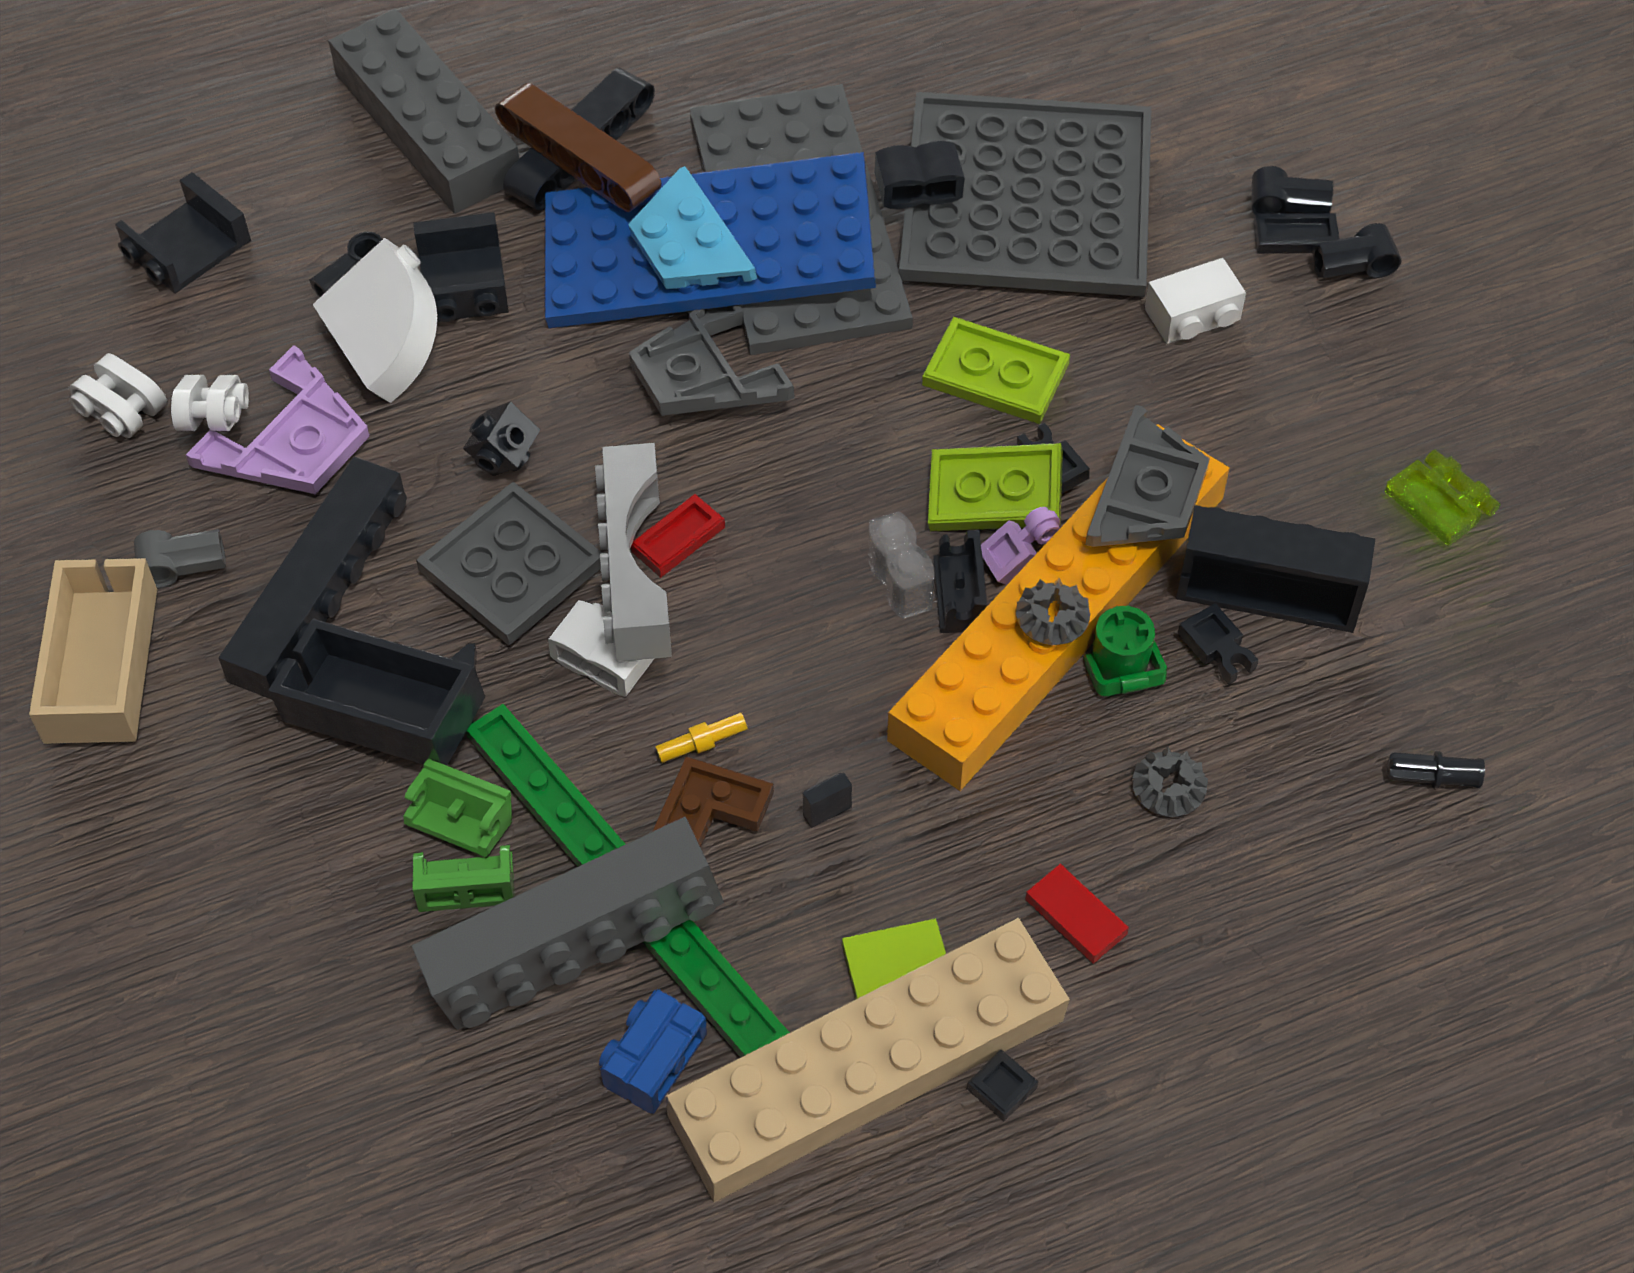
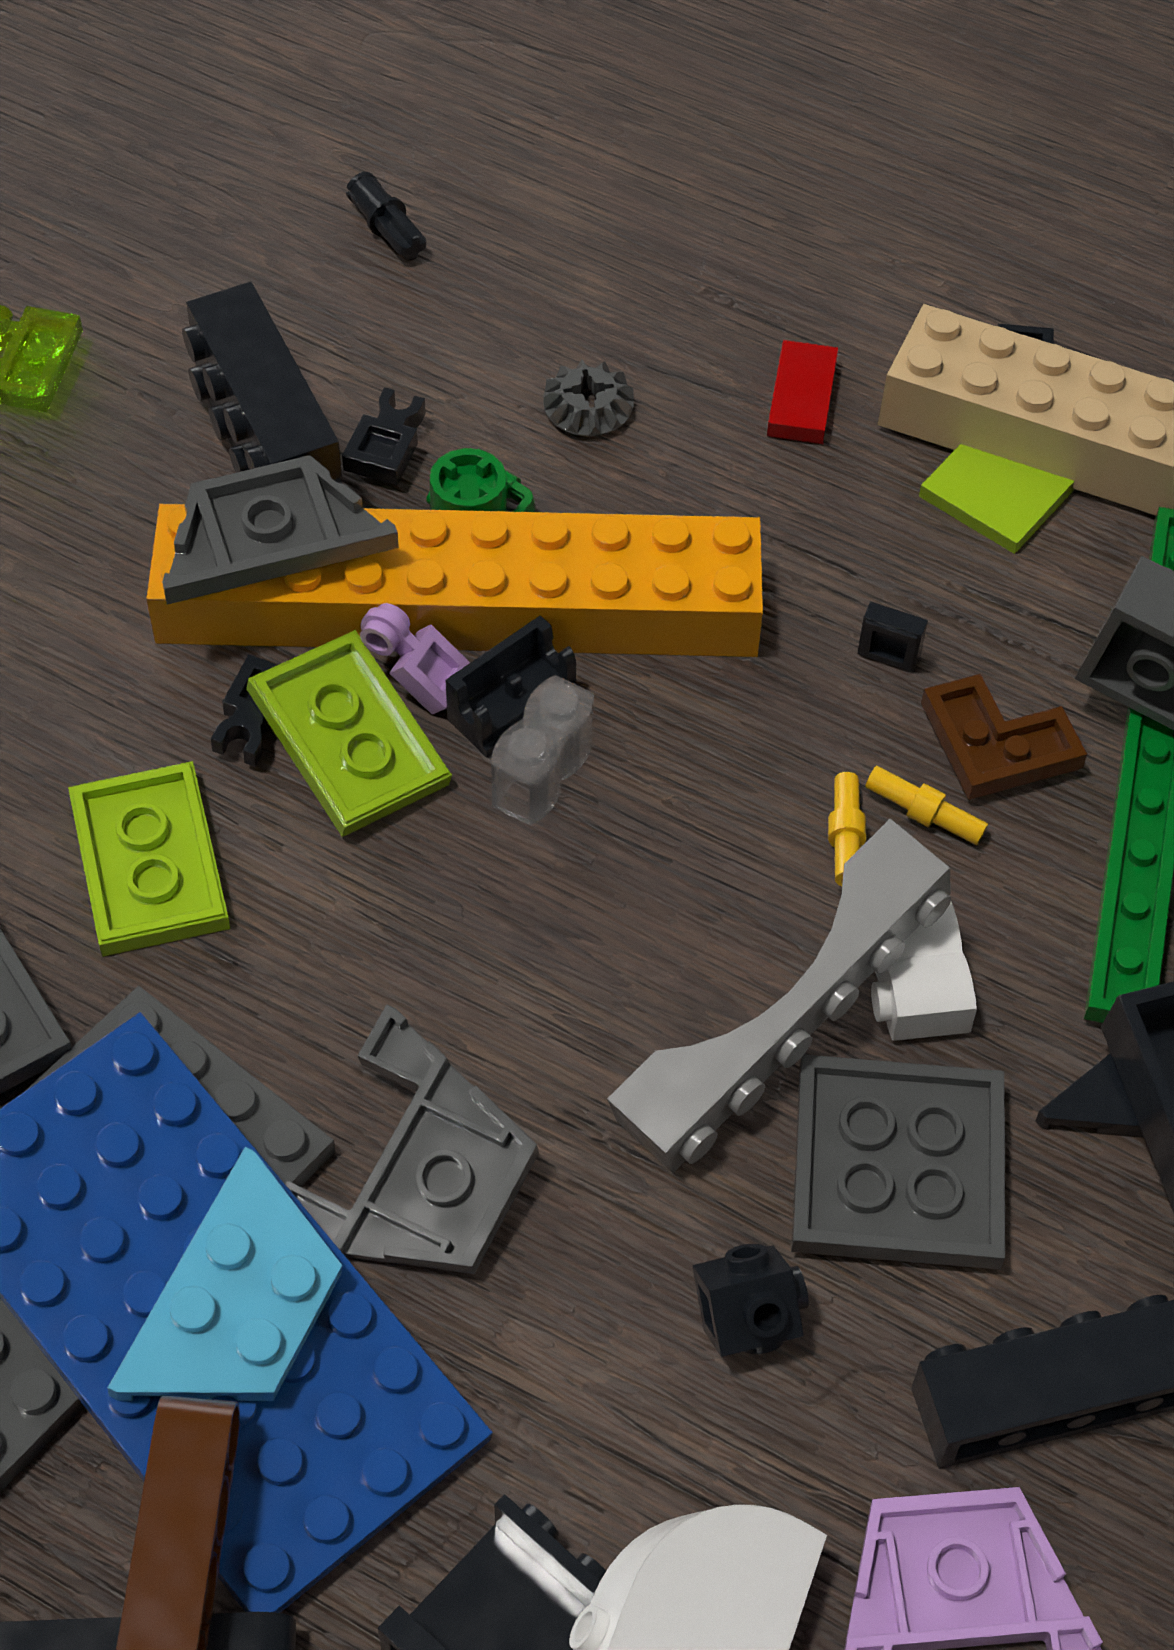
camera: 130 degrees left, 0 degrees up
(677, 535) = (679, 1016): red tile -> none
(722, 687) = (846, 822): none -> yellow bar
(1069, 622) = (506, 542): dark grey gear -> none

